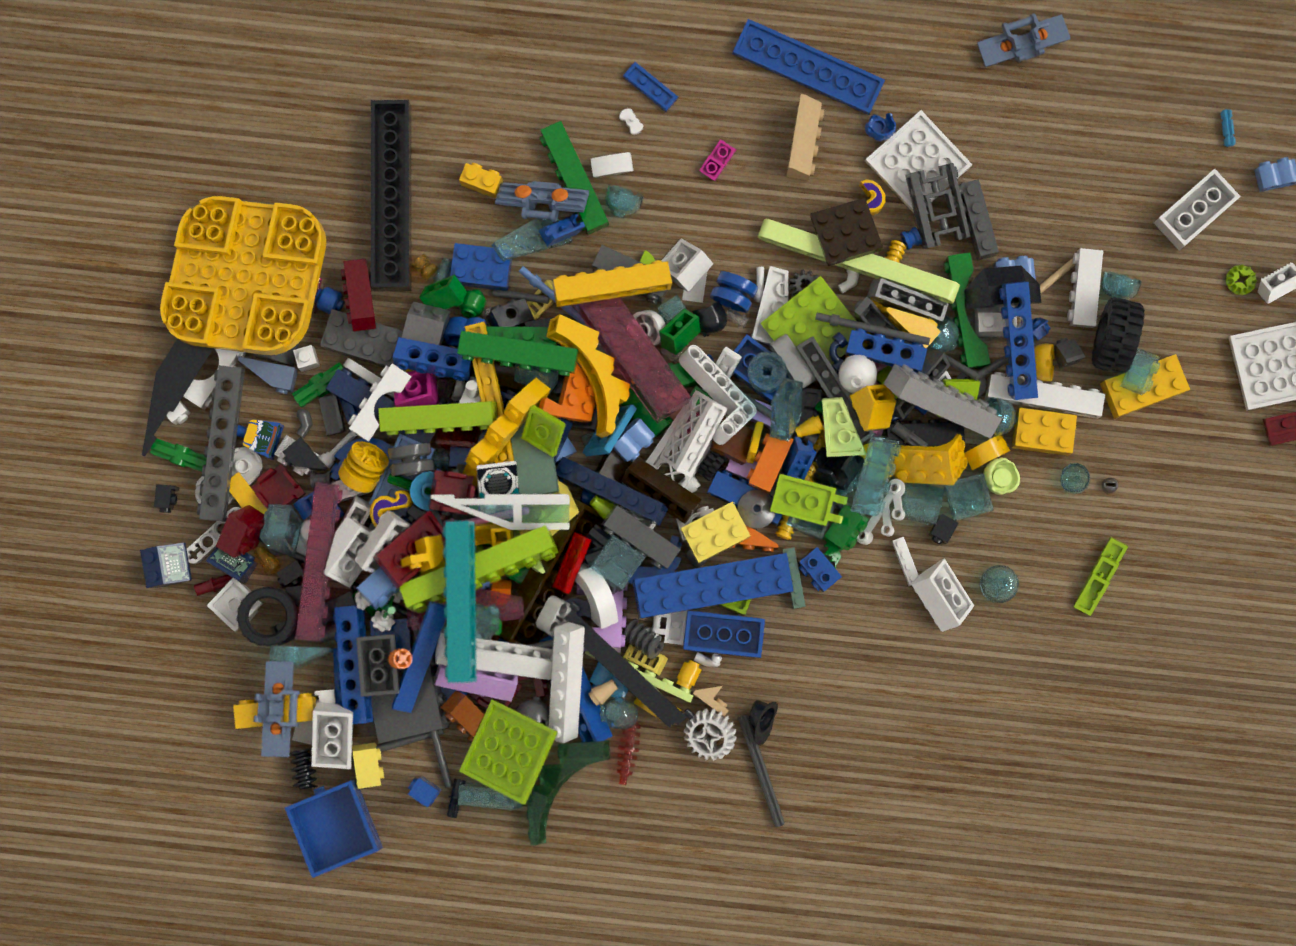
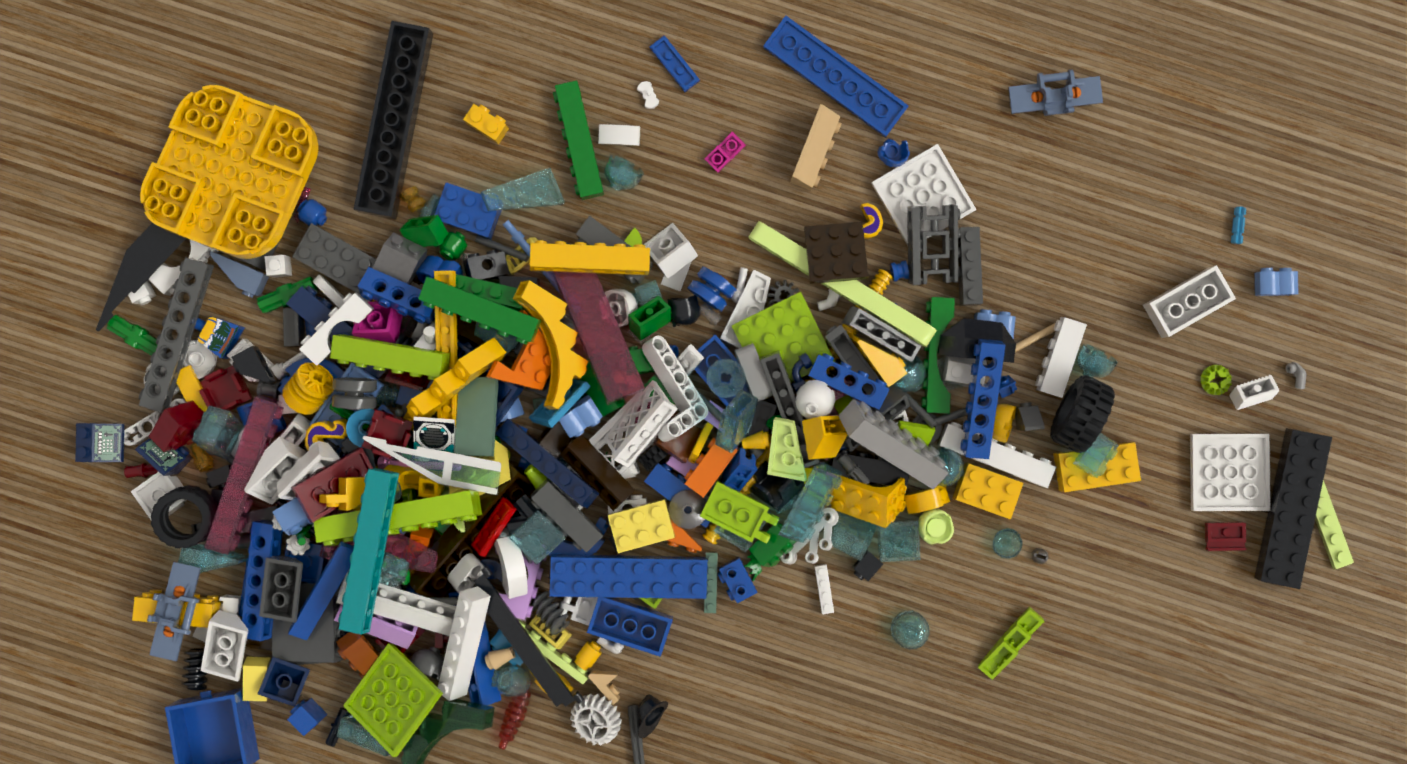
camera: 10 degrees right, 5 degrees up
(165, 498) = (113, 375): black brick -> none
(306, 422) = (266, 328): dark grey arm -> none
(359, 295) = (339, 216): dark red brick -> none
(395, 761) = (283, 681): none -> dark blue slope
(404, 658) = (304, 593): orange wheel -> none
(441, 758) = (331, 688): dark grey bar -> none
(542, 192) = (544, 149): sand blue piece -> none
(543, 430) = (488, 394): lime tile -> none
(561, 230) = (554, 191): blue hinge -> none
(835, 320) = (805, 340): dark grey bar -> none
(943, 595) = (852, 632): white slope -> none

